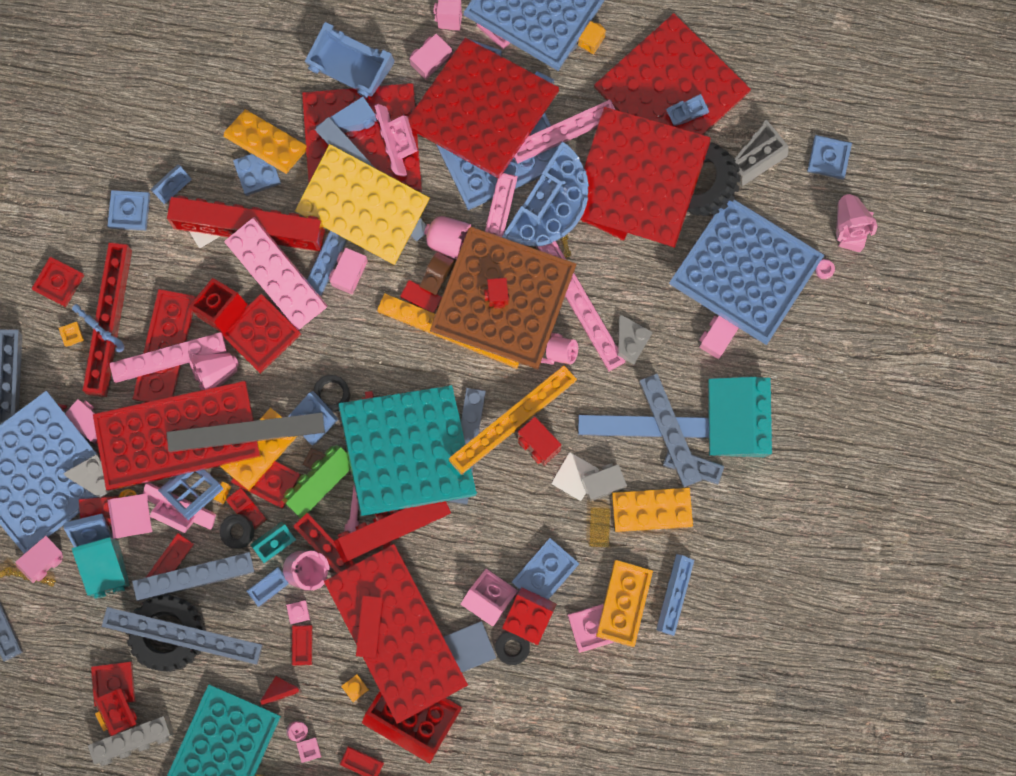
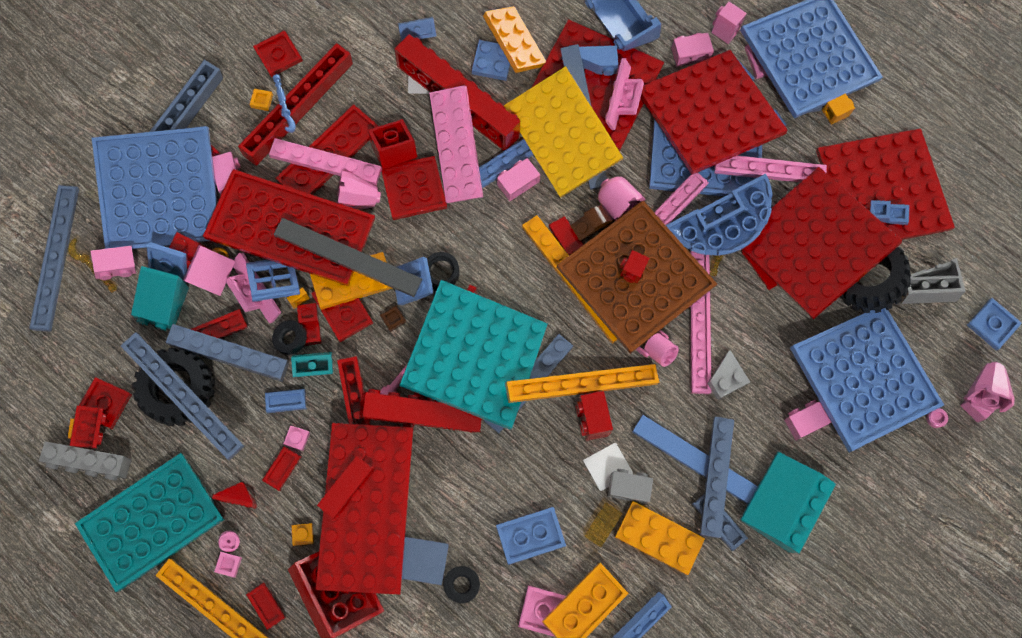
camera: 25 degrees right, 5 degrees down
(89, 476) = (197, 217): light grey wing -> none
(128, 210) = (370, 31): medium blue plate -> none
(311, 569) = (330, 409): bright pink cylinder -> none
(318, 481) = (383, 336): bright green brick -> none
(489, 597) = (468, 526): bright pink slope -> none
(529, 616) = (493, 565): red brick -> none

